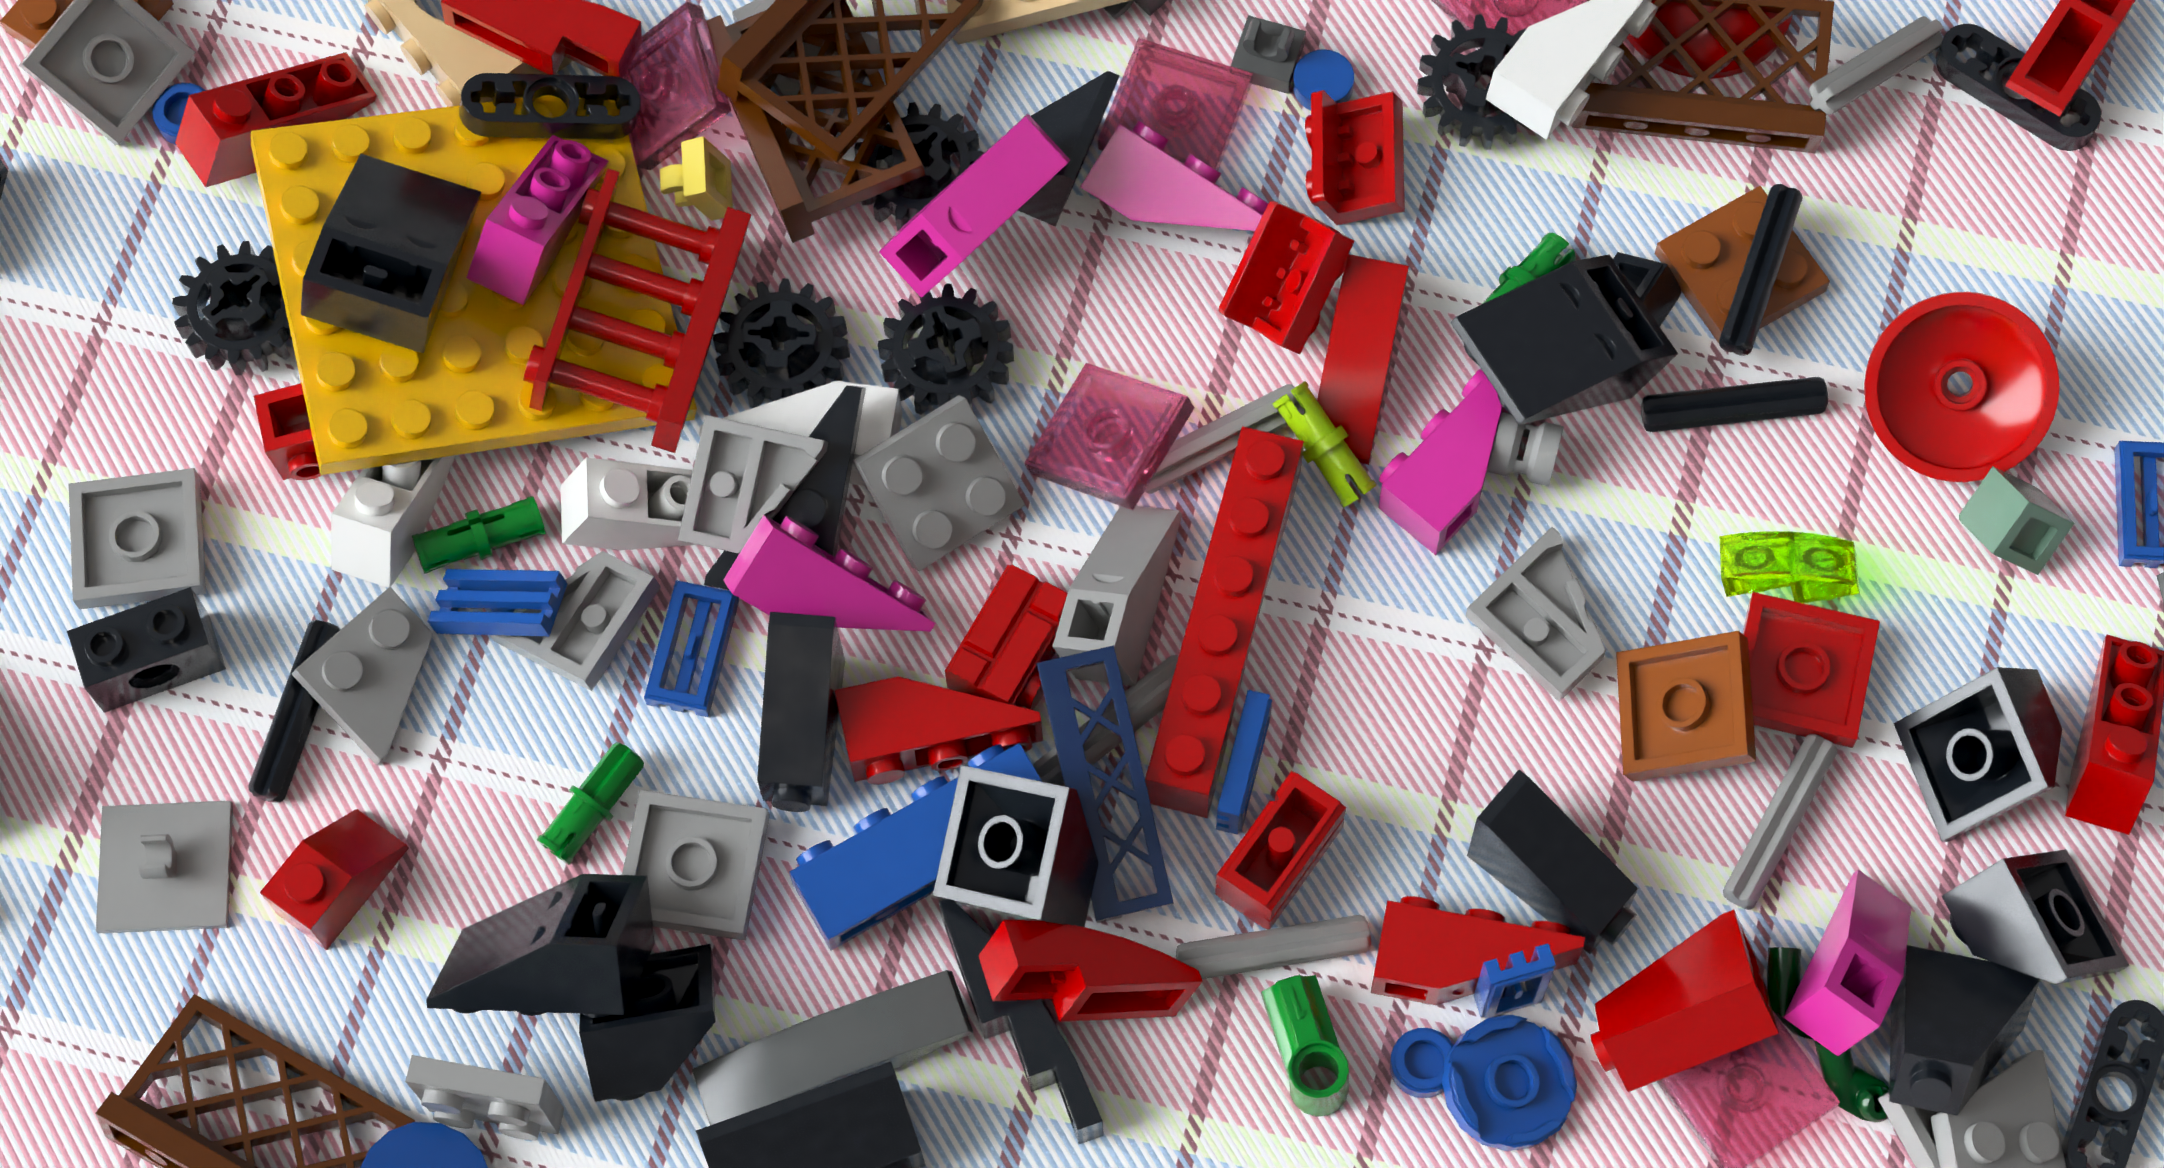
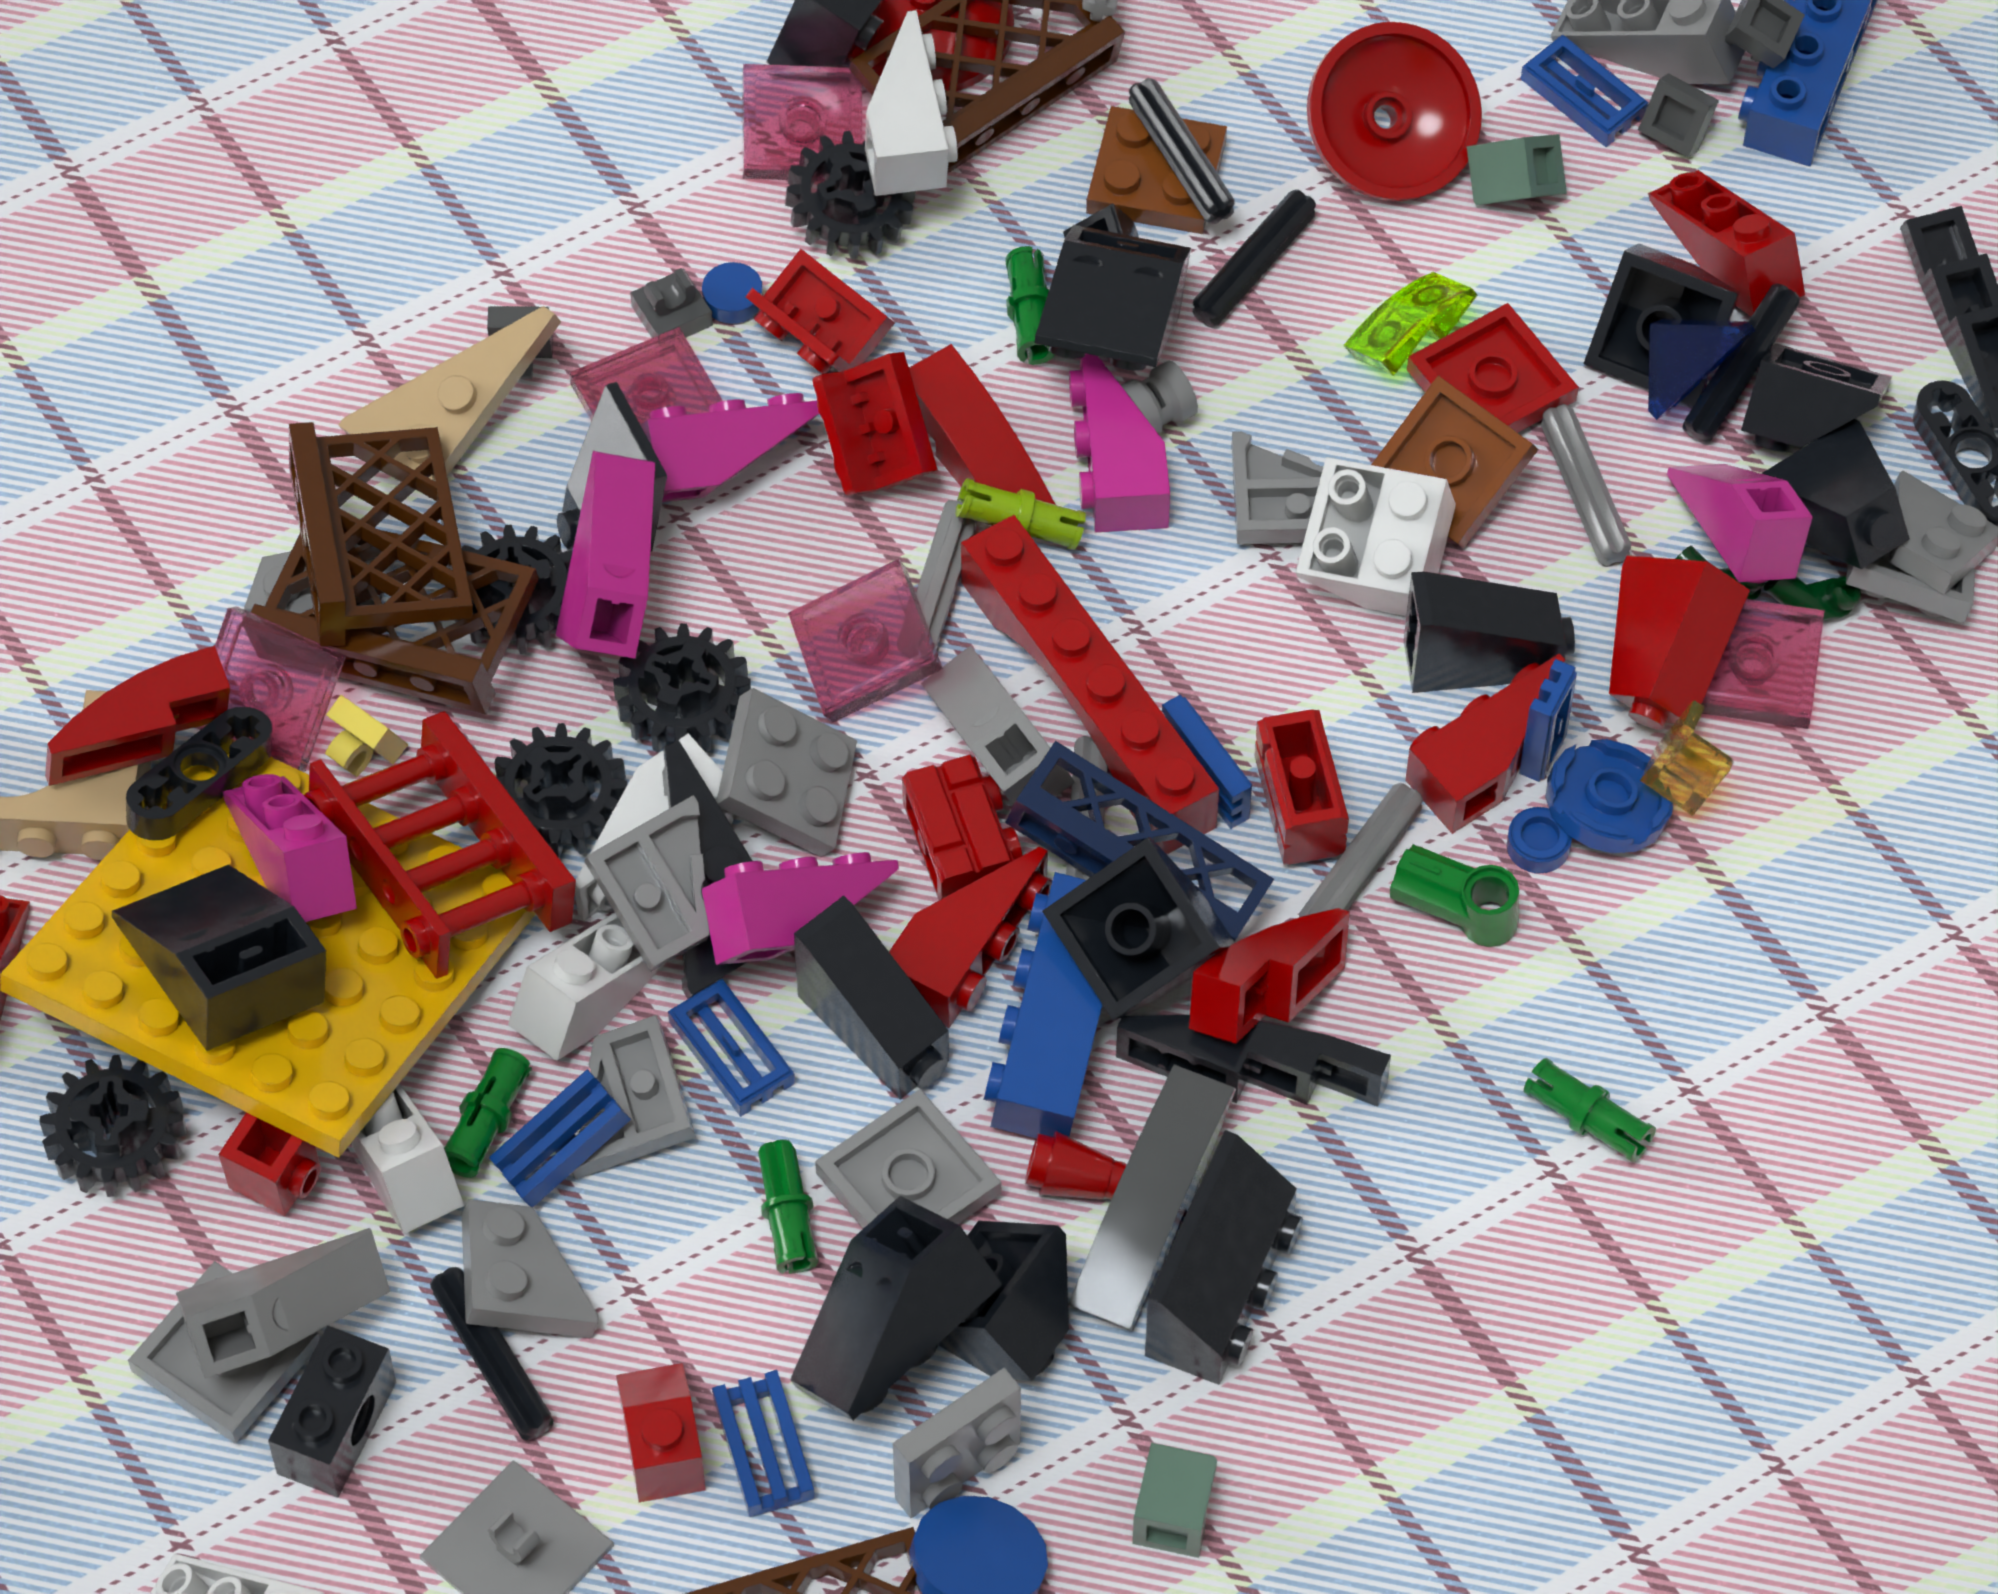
camera: 50 degrees left, 10 degrees down
(174, 539) = (280, 1301): none -> light grey slope
(371, 943) = (749, 1393): none -> blue tile
(804, 971) = (1071, 1169): none -> red cone
(1556, 710) = (1373, 532): none -> white slope
(1583, 1117) = (1686, 765): none -> clear yellow panel
(1959, 791) = (1685, 355): none -> clear blue slope
(2009, 840) = (1741, 365): none -> black axle

